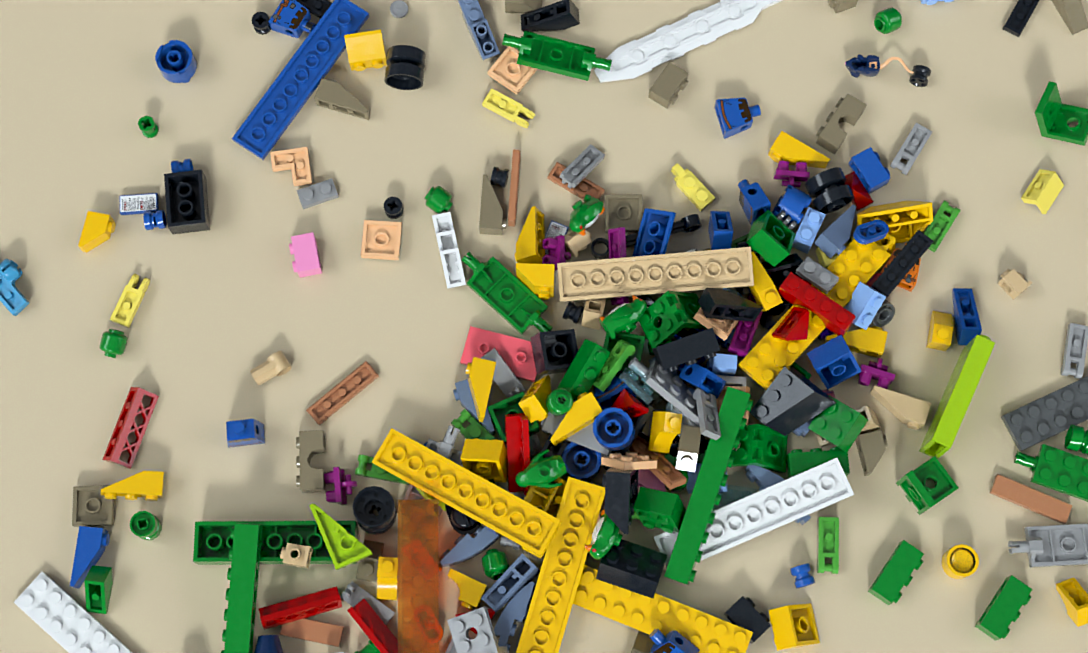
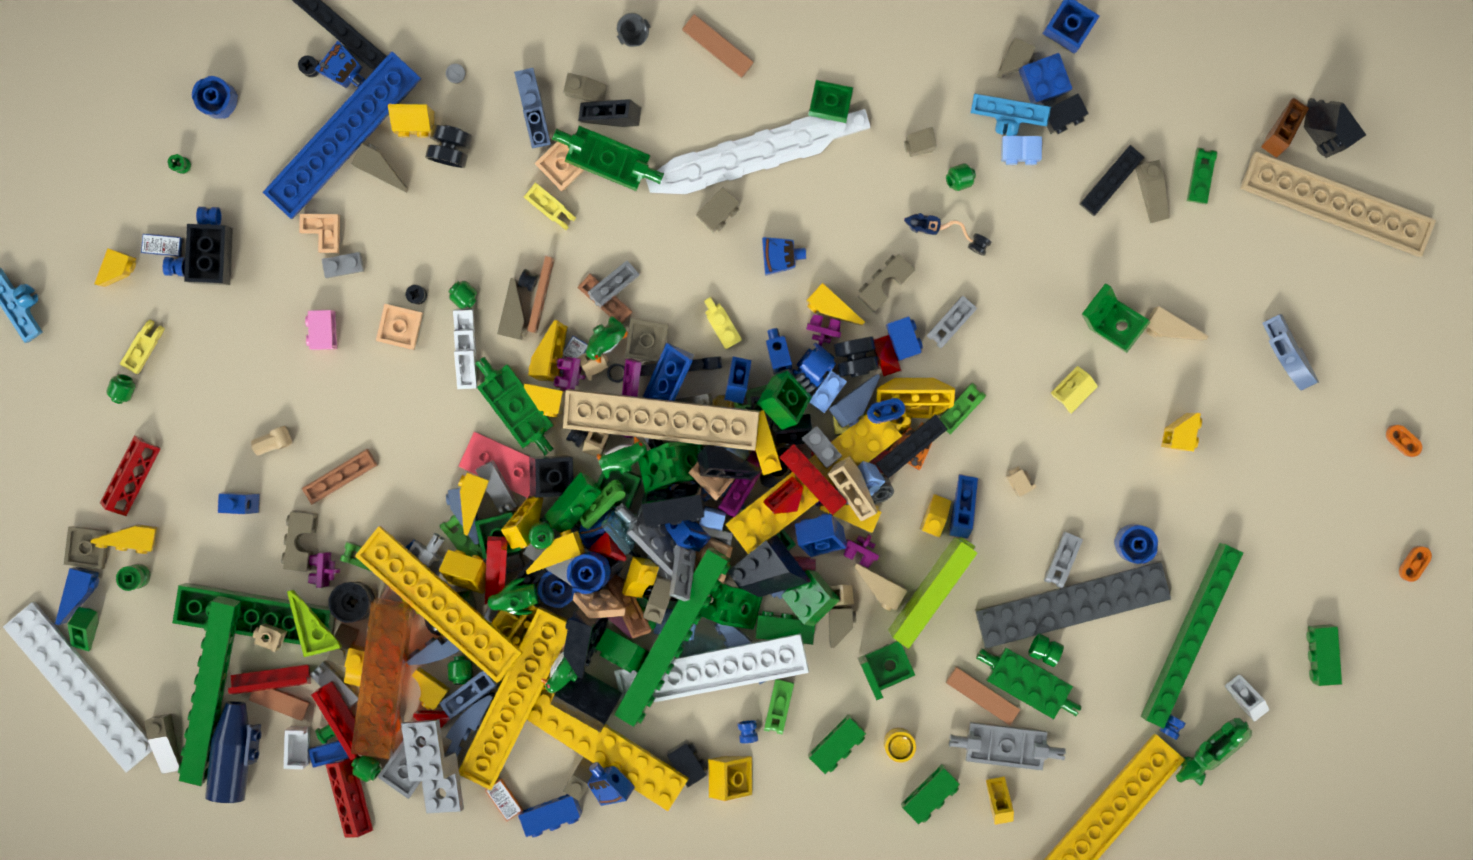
camera: 10 degrees right, 15 degrees up
(859, 304) = (853, 487): none -> tan slope

